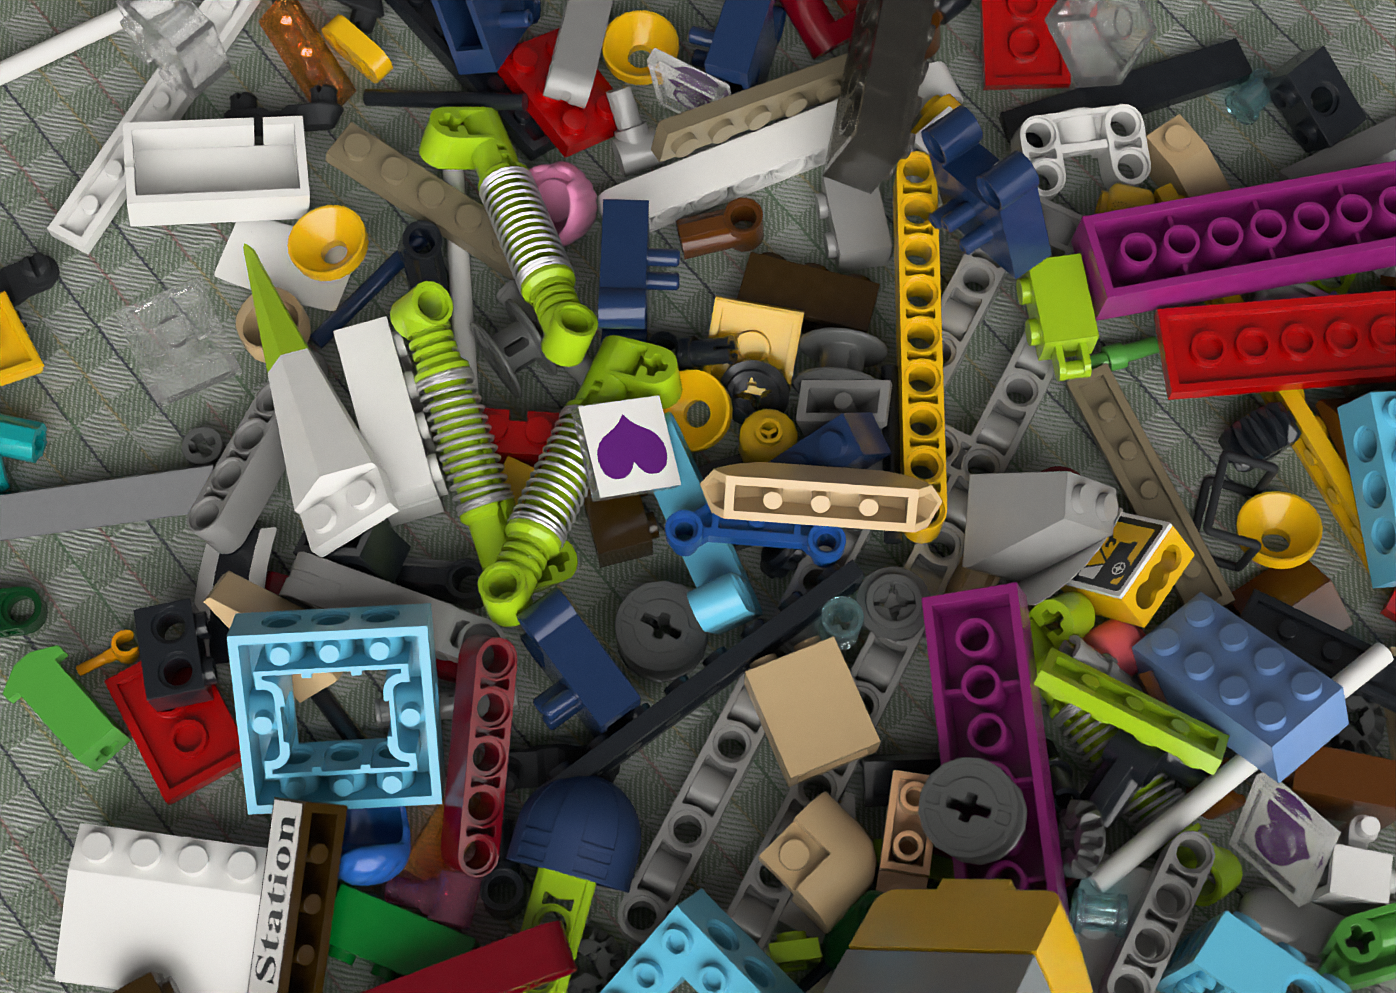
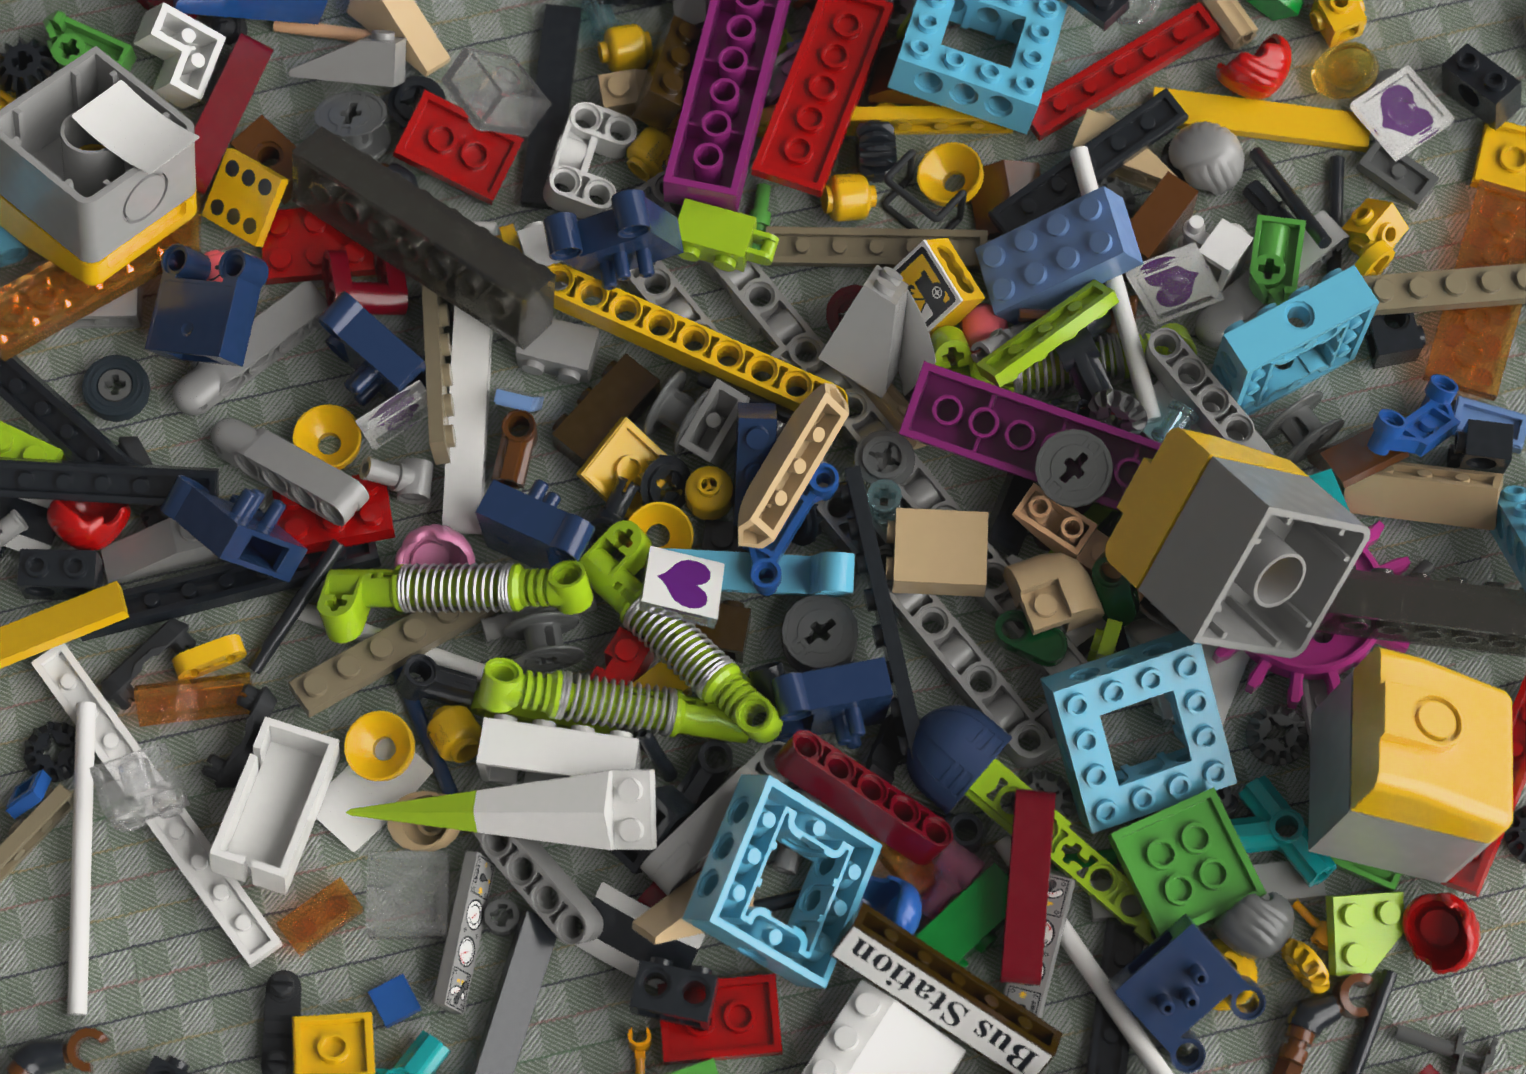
camera: 65 degrees left, 0 degrees up
(71, 385) = (395, 1000): none -> blue tile
(126, 270) = (320, 917): none -> clear orange plate
(162, 417) = (464, 933): none -> light grey tile
(374, 301) = (454, 733): none -> yellow head
(442, 513) = (655, 753): none -> black piece
(575, 587) = (762, 677): none -> black pin
(755, 883) = (1042, 648): none -> dark green piece
(771, 202) = (518, 400): none -> medium blue tile
(1190, 434) = (848, 197): none -> yellow head
(1209, 173) = (668, 74): none -> dark brown brick
(1231, 133) = (625, 48): none -> yellow head

